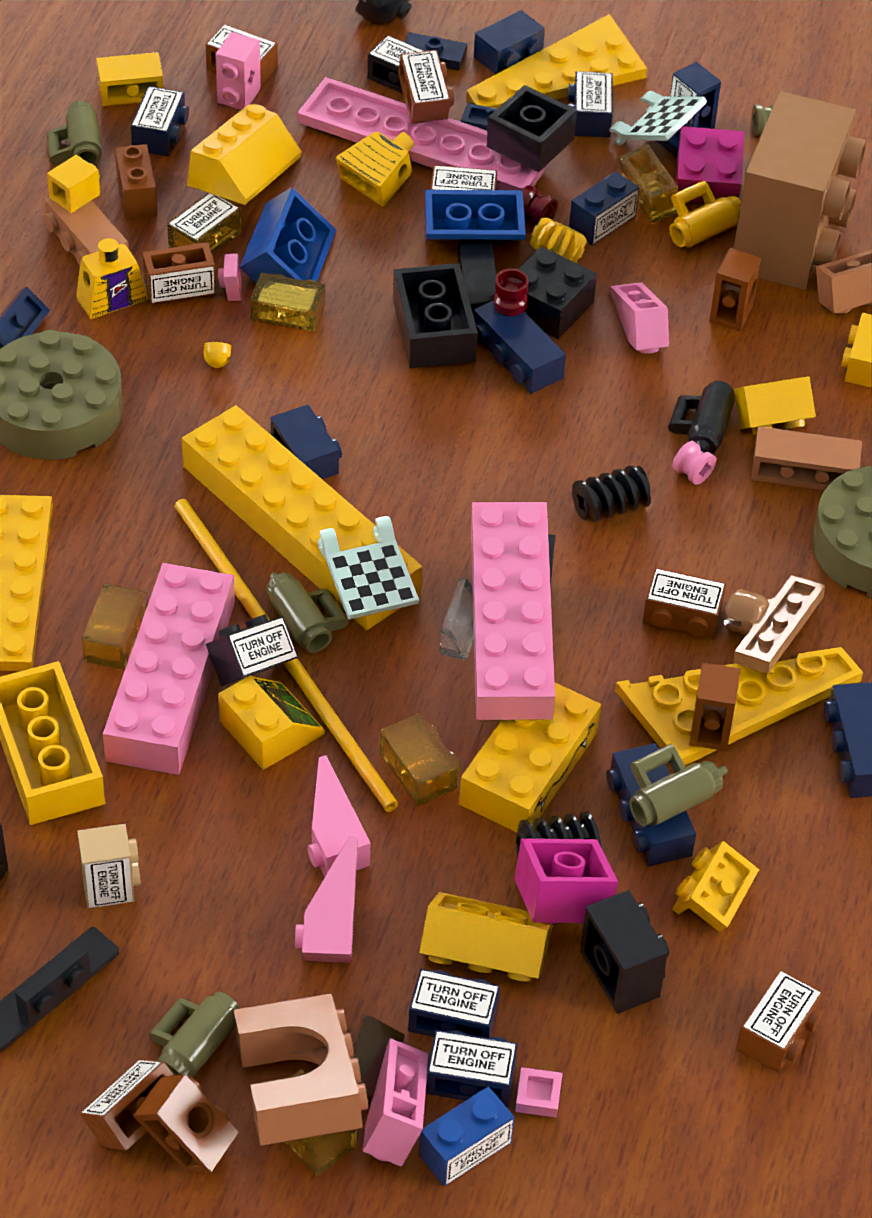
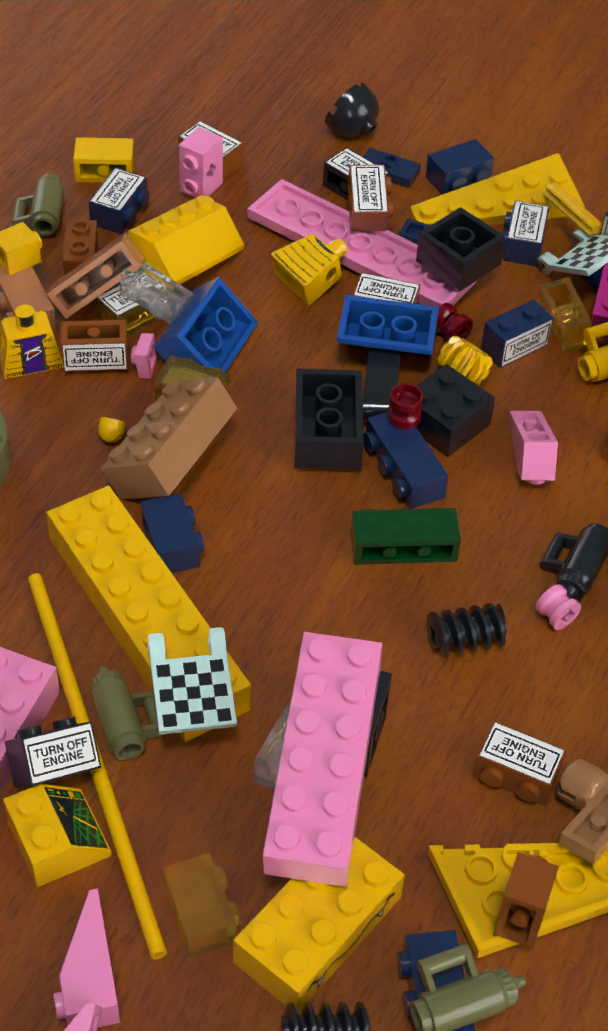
camera: 10 degrees right, 0 degrees up
(164, 201) = (95, 275): none -> nougat brick
(230, 210) = (155, 292): none -> clear bracket
(283, 353) = (169, 438): none -> medium nougat brick
(534, 417) = (405, 536): none -> dark green brick
(637, 73) = (572, 209): none -> yellow axle

